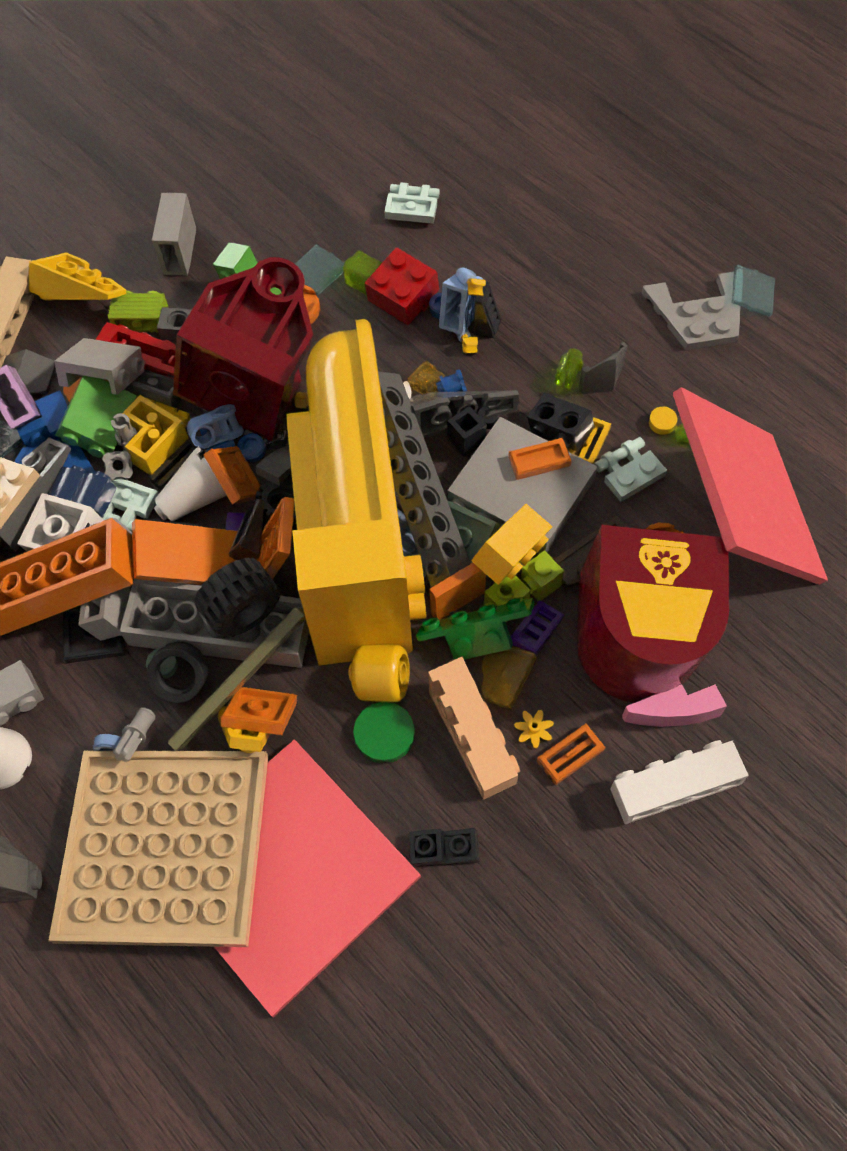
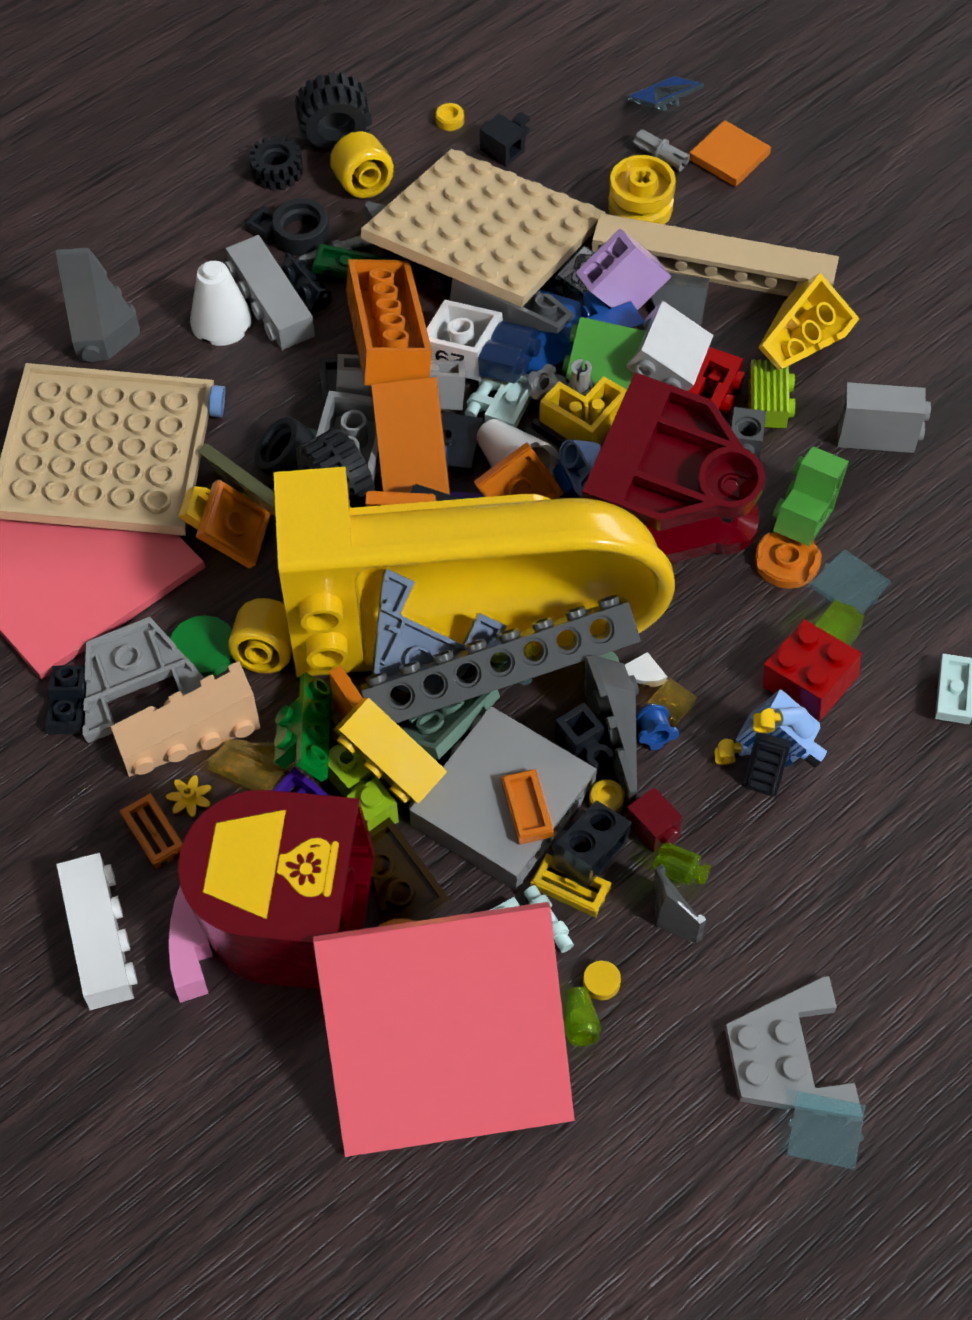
camera: 90 degrees right, 5 degrees down
(134, 734) = (222, 418): light grey axle -> none
(405, 791) = (125, 663): none -> light grey wing
(515, 416) = (608, 793): none -> yellow tile
(533, 384) = (654, 820): none -> dark red brick

